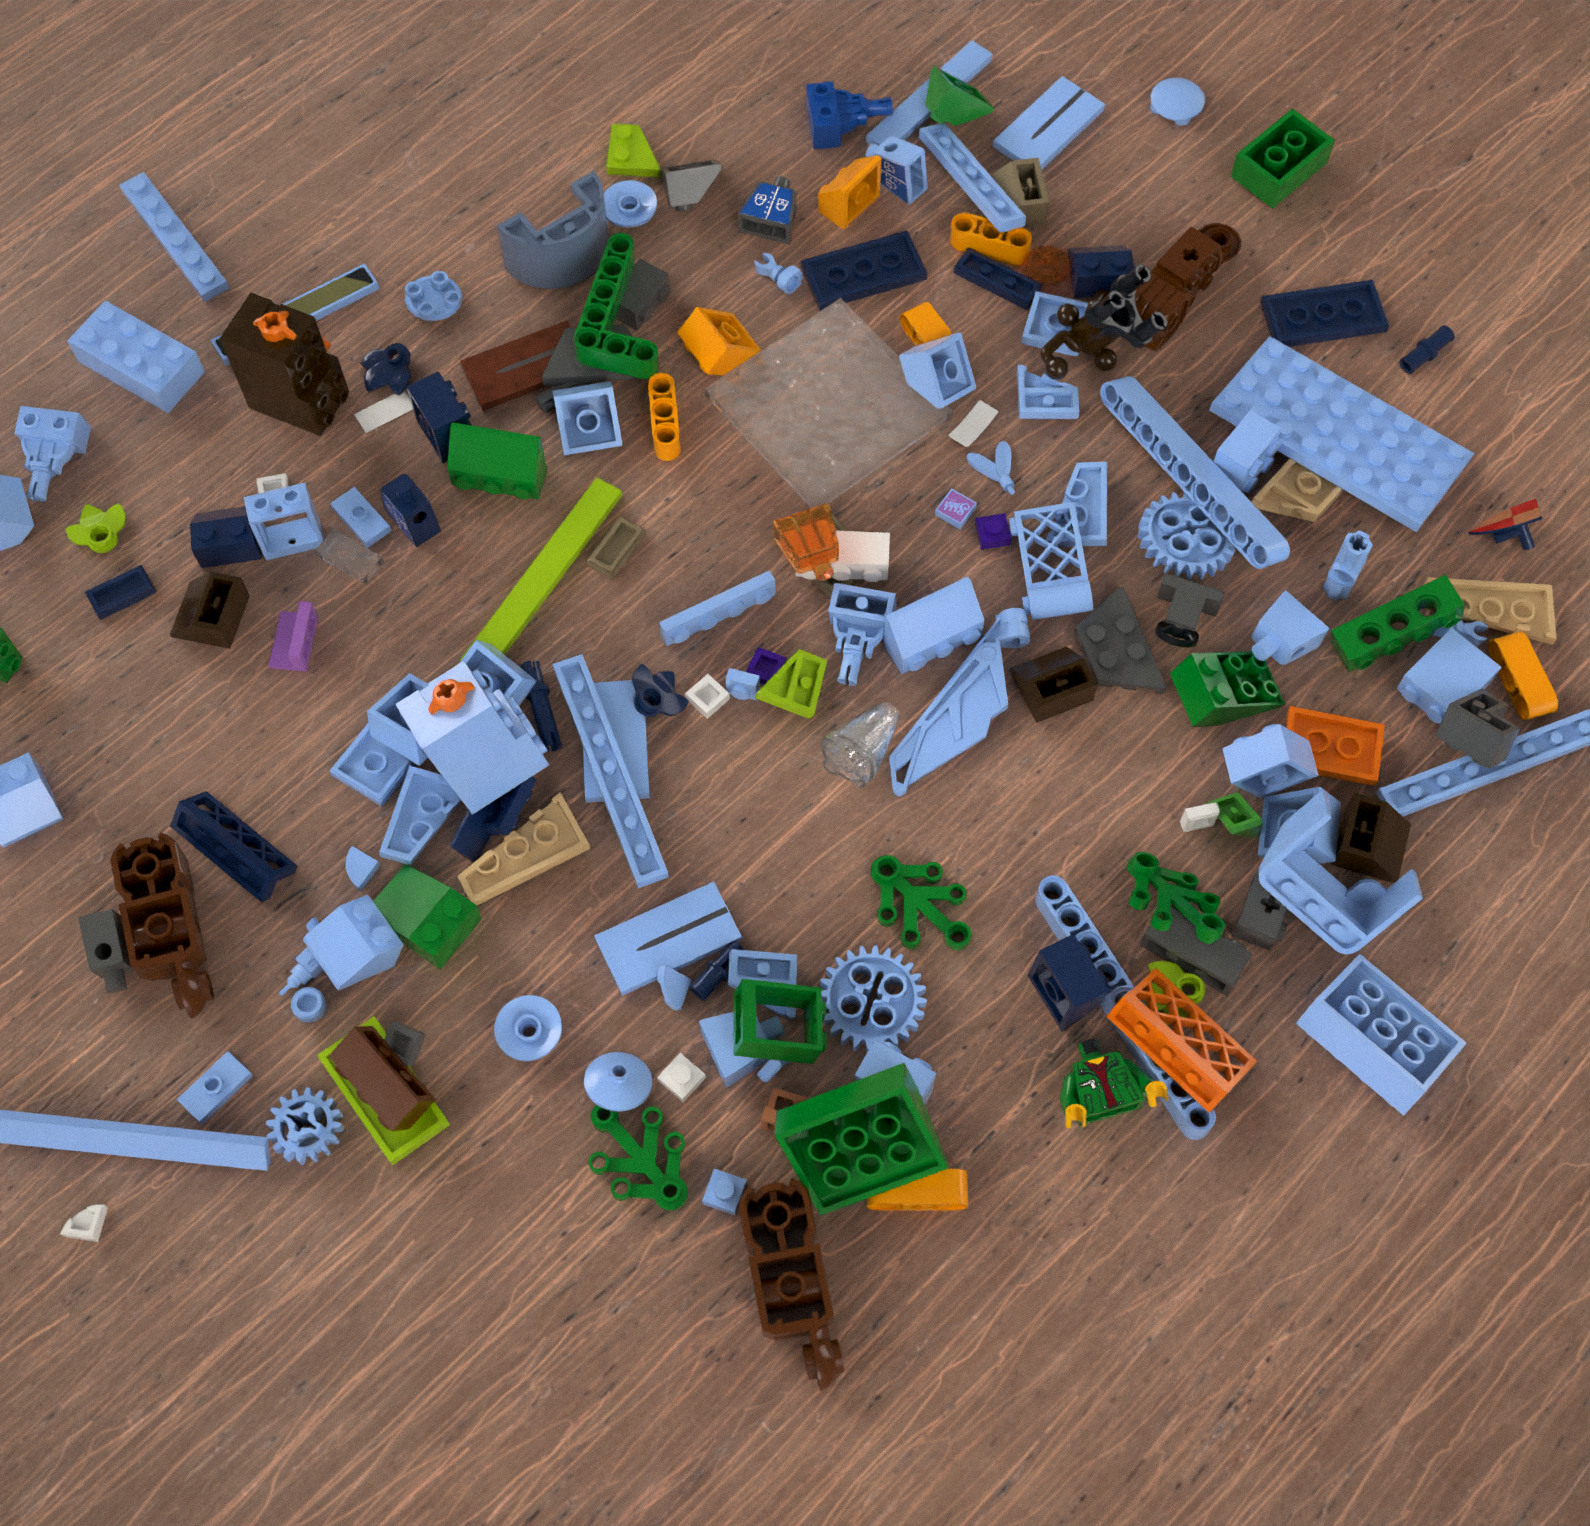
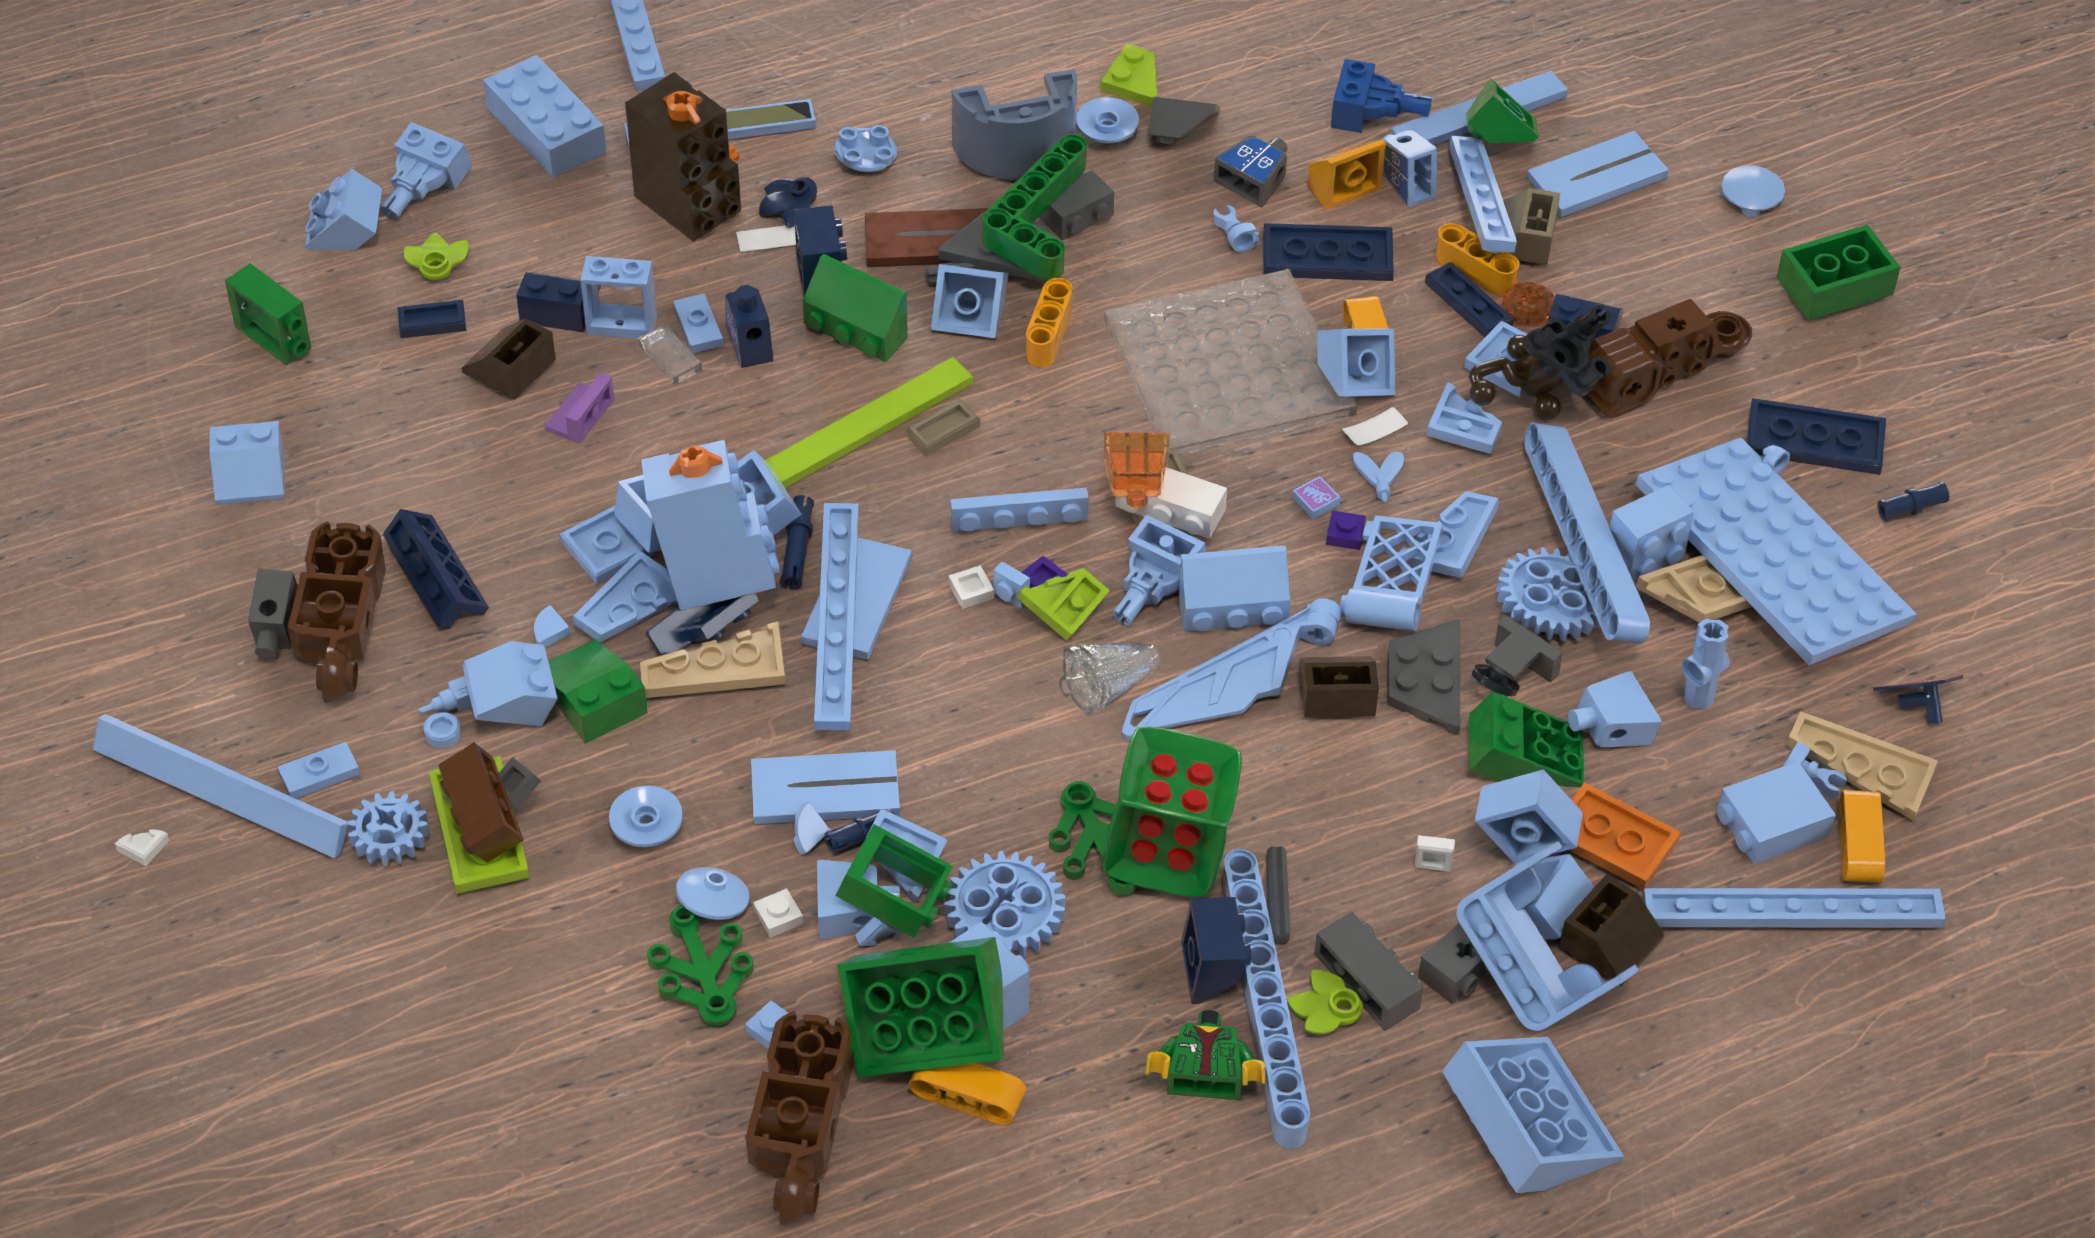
camera: 20 degrees right, 15 degrees down
(658, 691) = (921, 565): dark blue plate -> none
(717, 340) = (1137, 268): light orange slope -> none
(985, 868) = (1172, 812): none -> green piece
(1088, 899) = (1278, 893): none -> dark grey axle
(1146, 870) = (1351, 880): green plant -> none
(1172, 1049) = (1295, 1046): orange fence -> none
(1238, 816) = (1473, 864): bright green slope -> none
(1304, 345) = (1776, 458): none -> light blue hinge
(1436, 595) = (1739, 739): green brick -> none
(1478, 728) = (1775, 857): dark grey brick -> none

